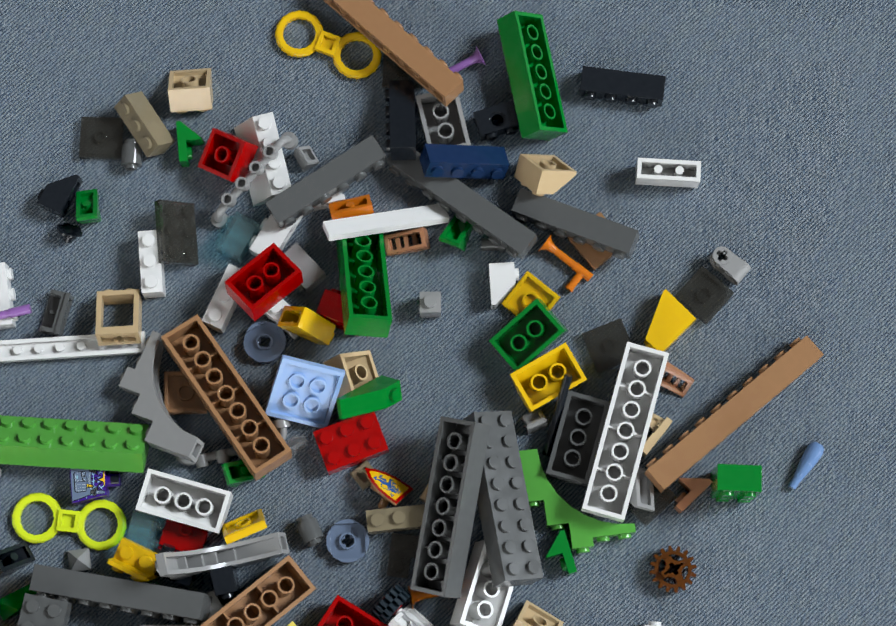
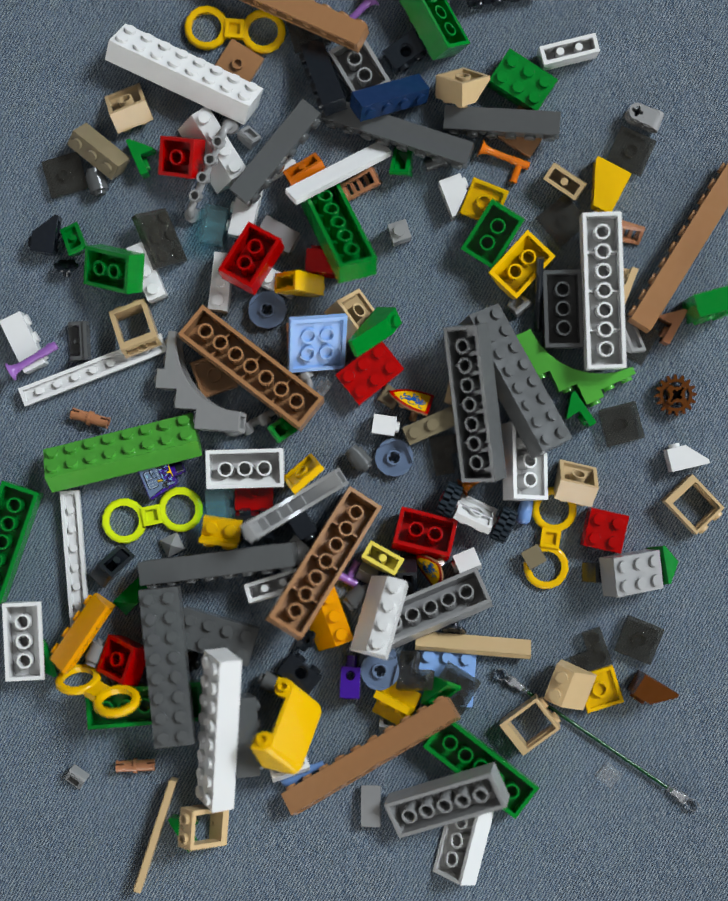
camera: 15 degrees left, 10 degrees up
(39, 397) = (90, 418): none -> nougat pin
(117, 248) = (114, 268): none -> green brick
(259, 73) = (183, 73): none -> white brick
(319, 81) = (240, 60): none -> medium nougat plate
(349, 503) = (385, 425): none -> white brick
(604, 582) = (621, 423): none -> clear smoke plate
(610, 188) = (521, 81): none -> green brick
(623, 305) = (565, 181): none -> tan brick

